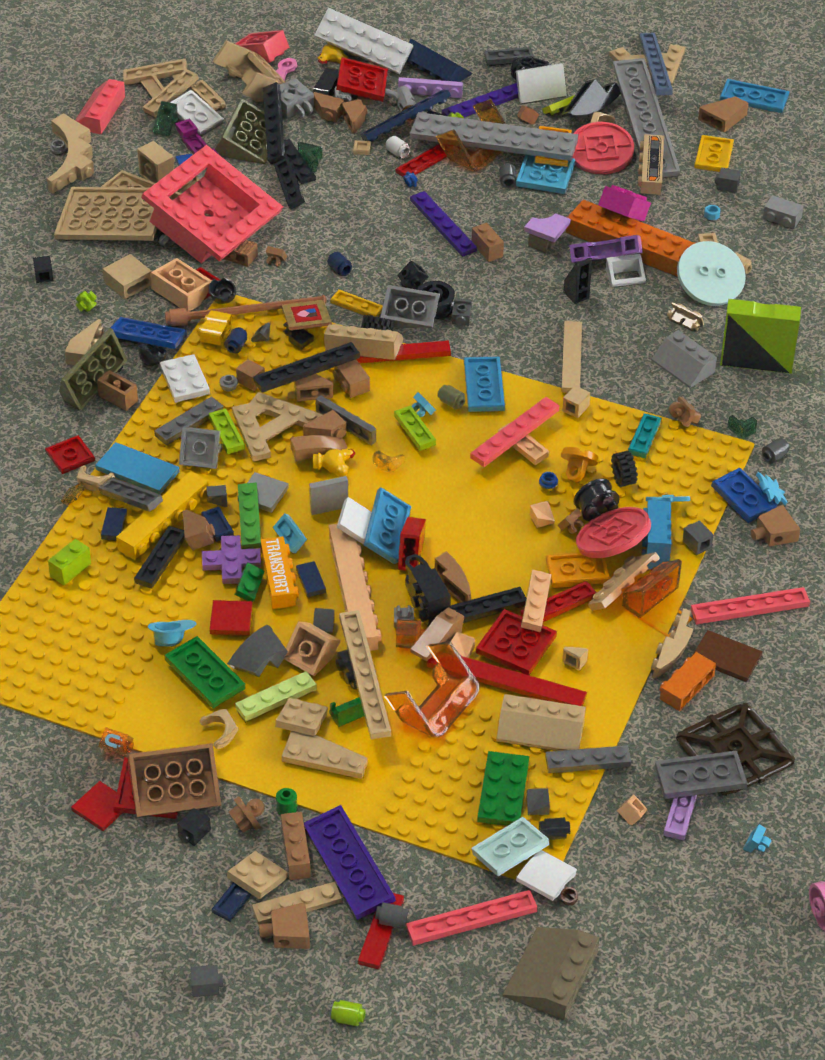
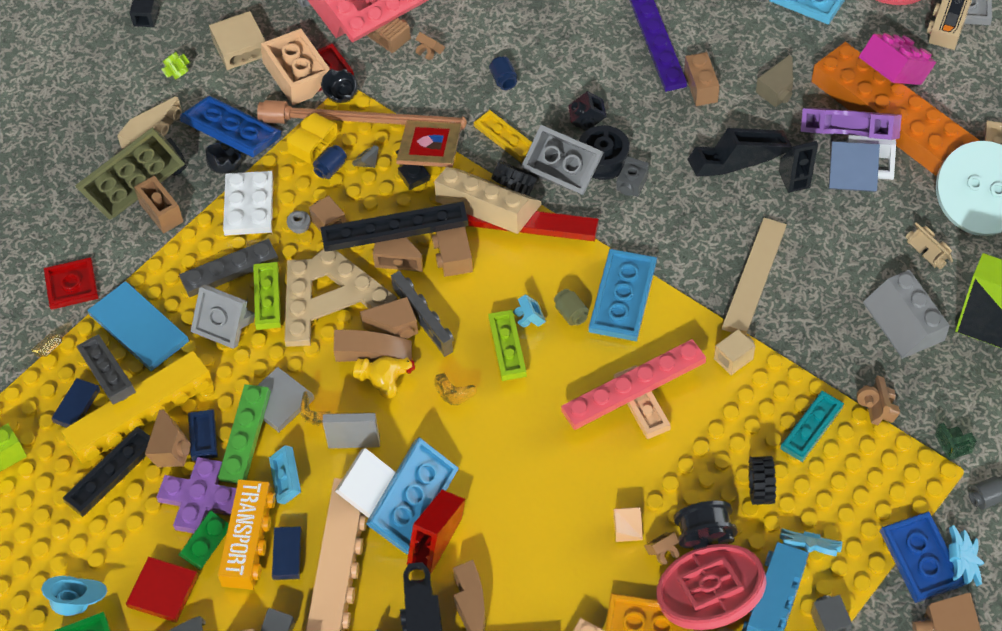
camera: 20 degrees right, 10 degrees up
(92, 482) = (73, 335): tan helmet -> none
(217, 495) = (217, 392): dark grey slope -> none
(295, 496) = (309, 416): none -> clear yellow hair
(531, 281) = (738, 150): none -> black slope
(547, 228) = (785, 75): lavender tile -> none
(548, 480) = (655, 464): blue plate -> none
(578, 460) = (702, 452): light orange tile -> none
(616, 277) = (854, 166): none -> sand blue tile

